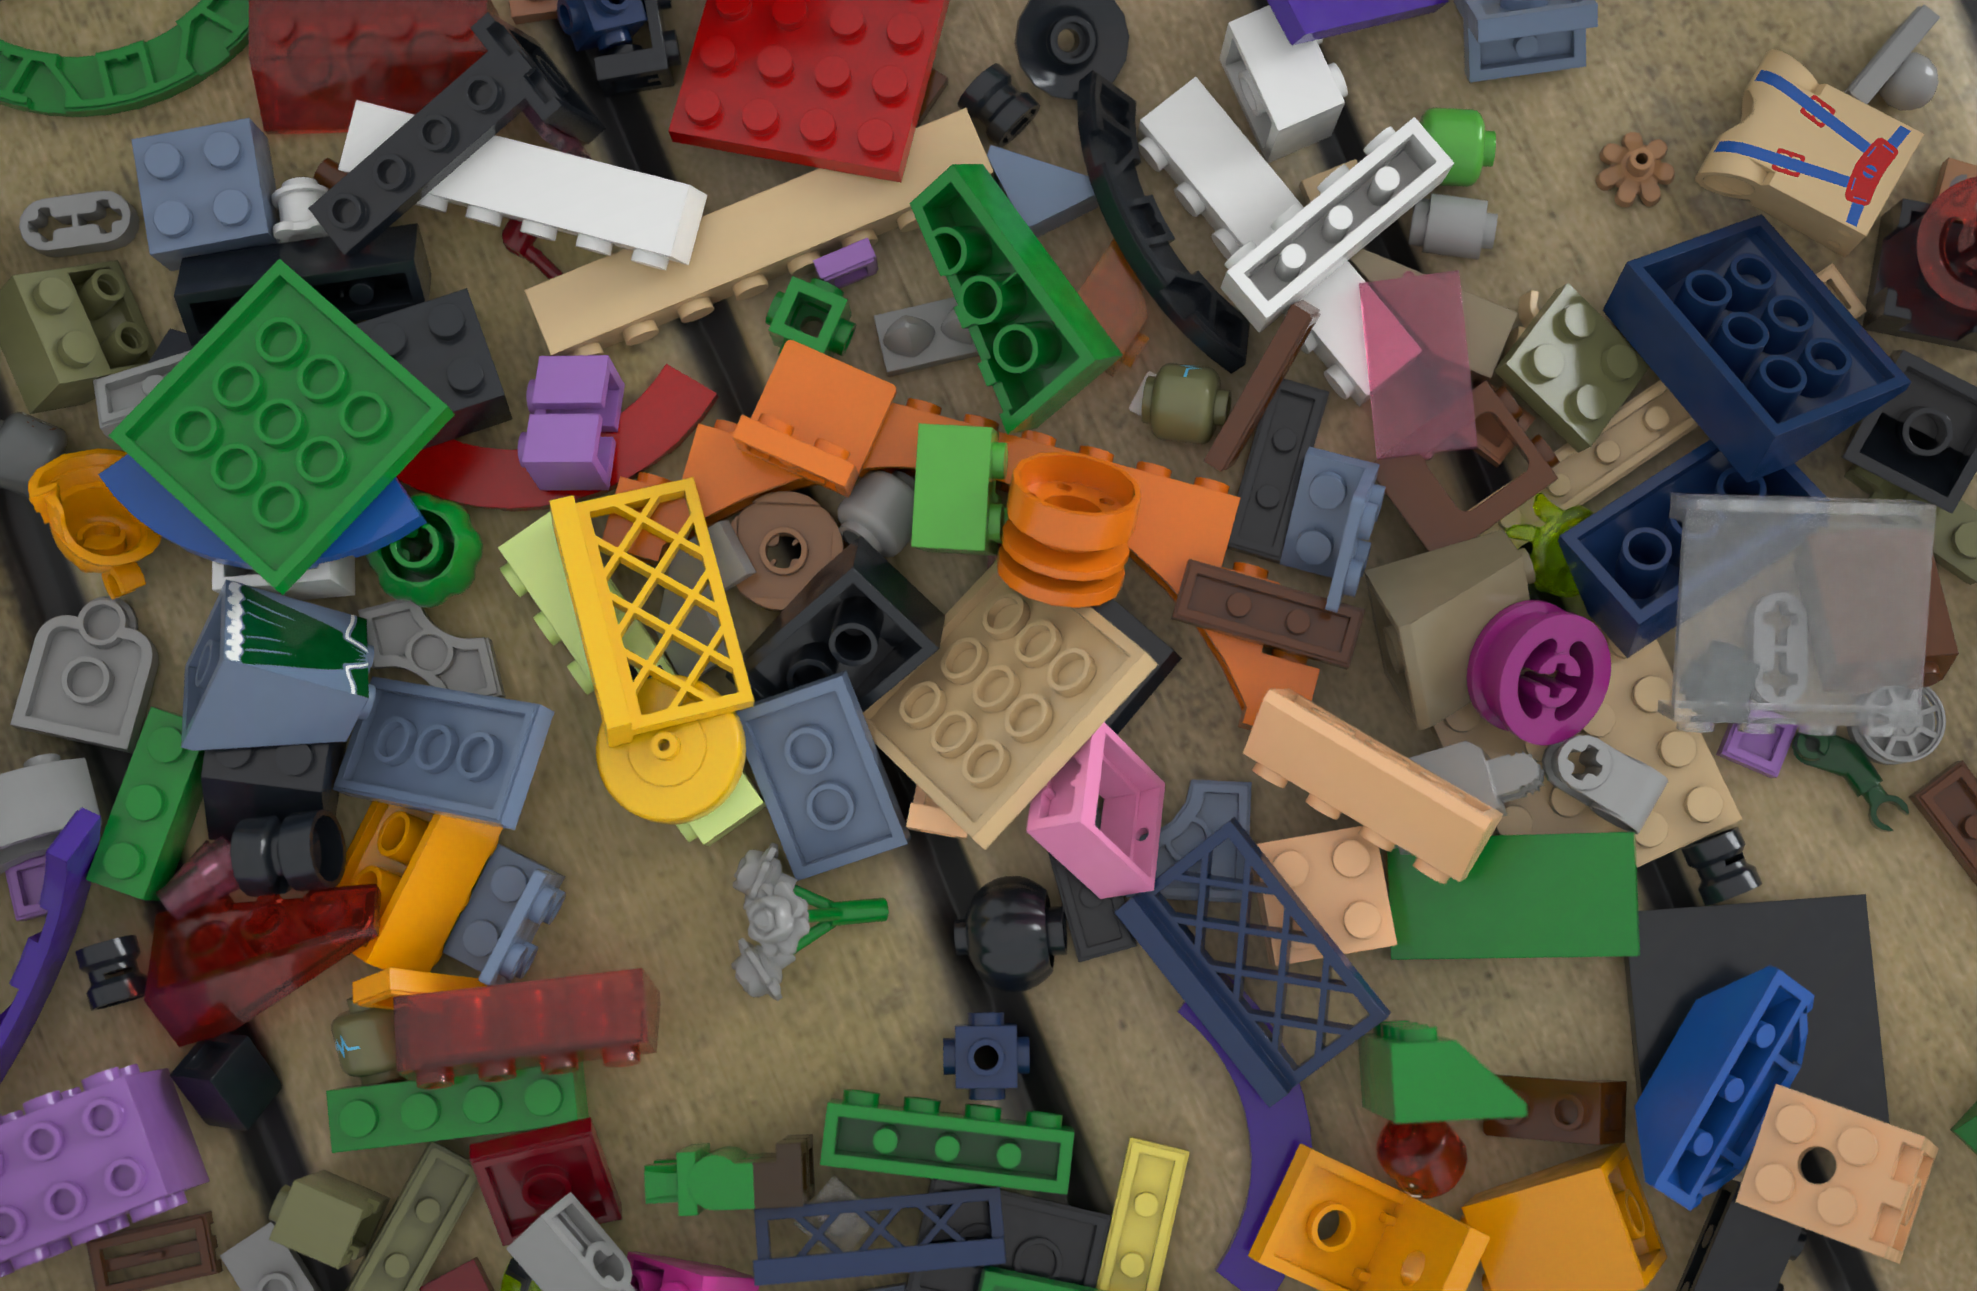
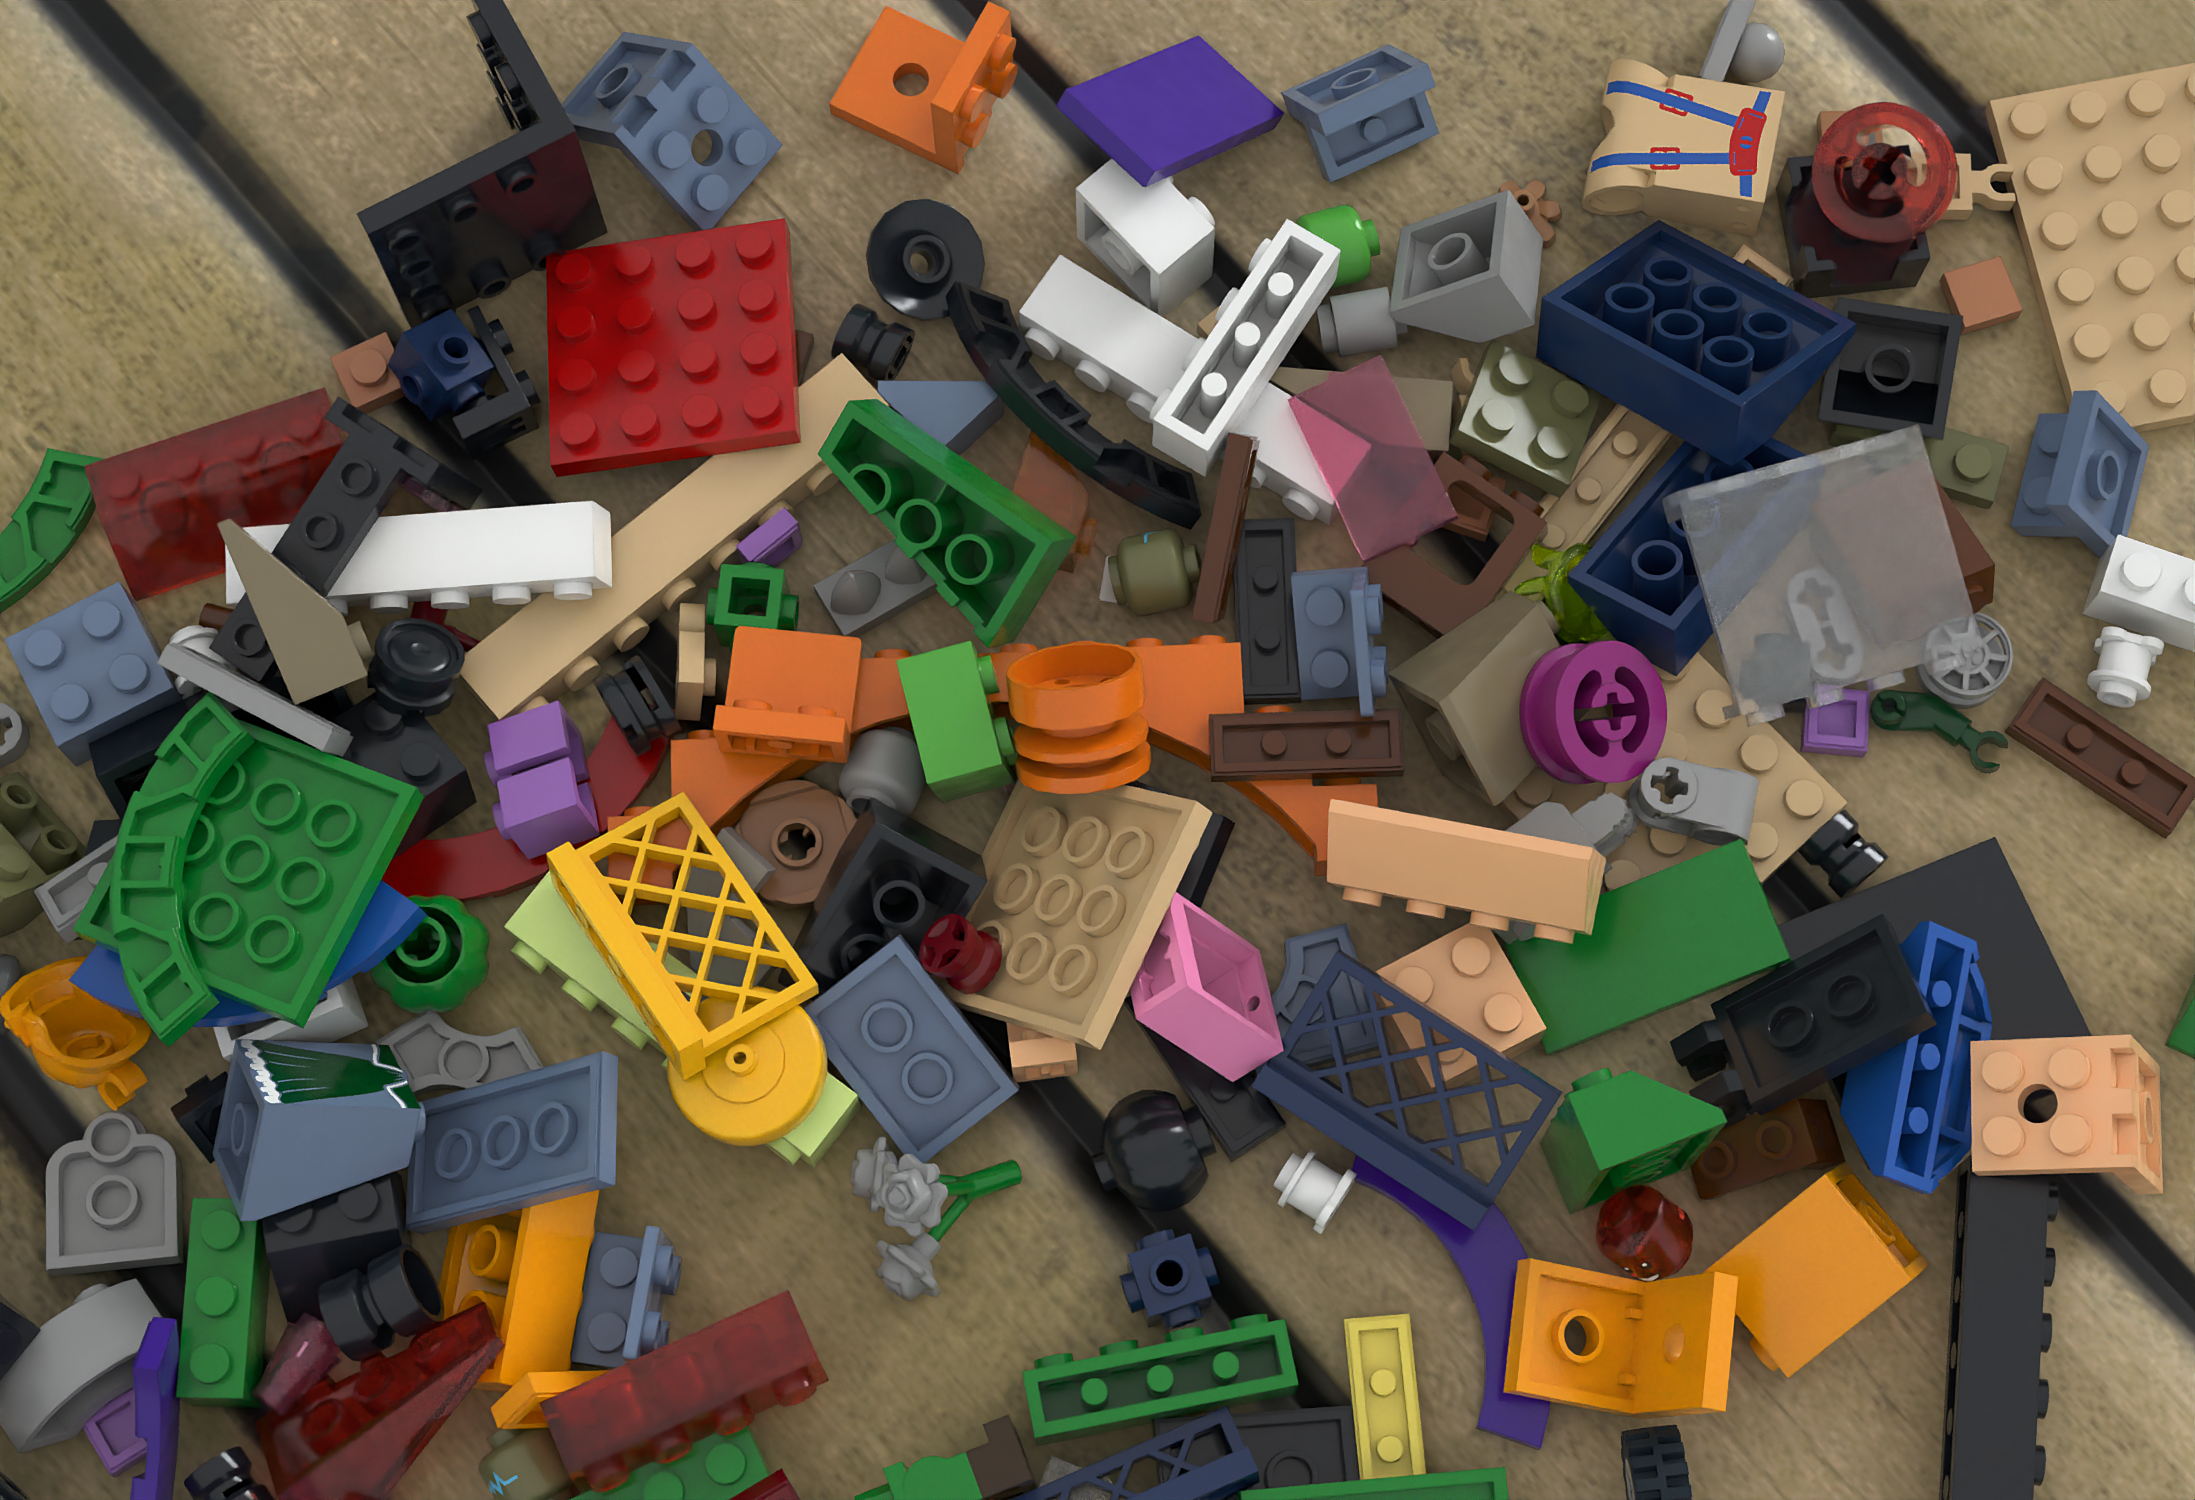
camera: 20 degrees left, 10 degrees down
(183, 627) = (201, 1112): none -> black tile
(191, 400) = (151, 865): none -> green tile
(332, 273) = (255, 699): none -> light grey tile
(389, 217) = (301, 626): none -> dark tan slope
(488, 285) = (415, 667): none -> black wheel
(670, 382) = (630, 709): none -> black wheel
(740, 364) = (693, 671): none -> tan plate
(893, 707) = (960, 954): none -> dark red wheel
(1141, 1013) = (1313, 1188): none -> white brick
(1568, 211) = (1469, 271): none -> light grey slope
(1633, 1019) = (1806, 1023): none -> black tile

